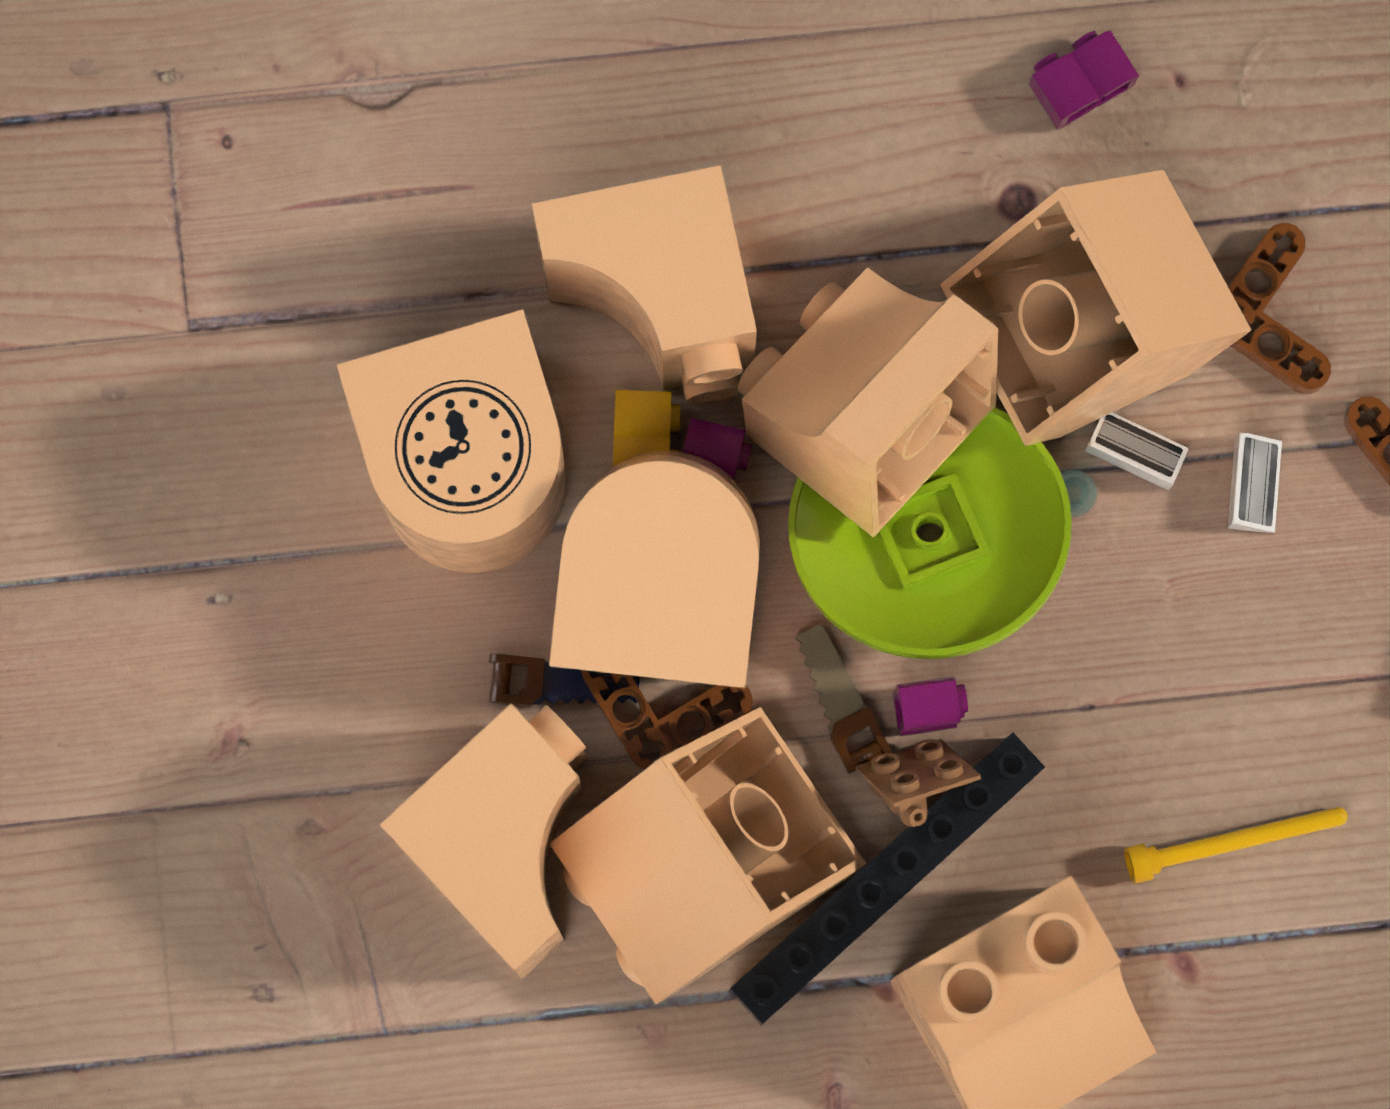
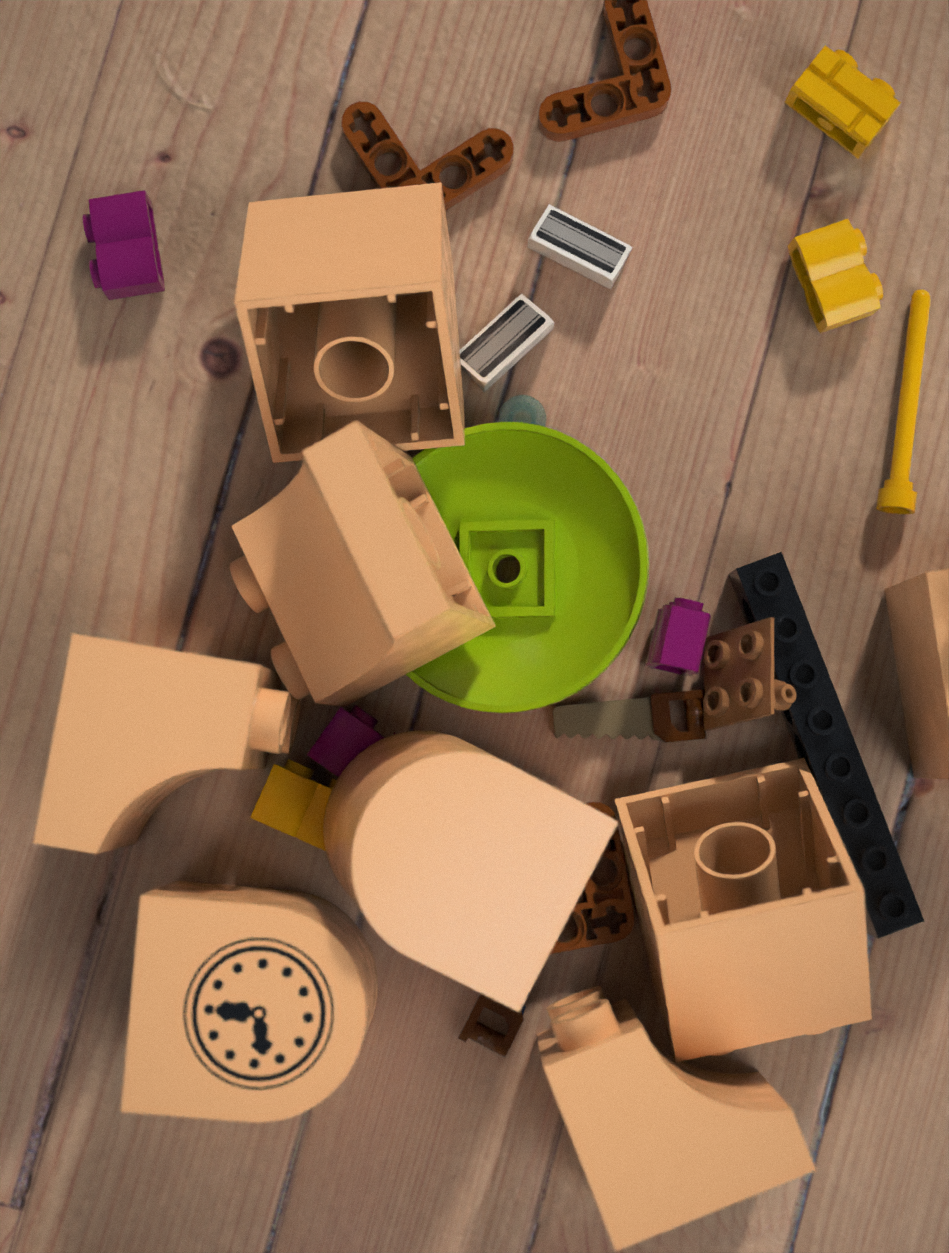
camera: 65 degrees left, 5 degrees up
(1324, 726) = (835, 275): none -> yellow brick

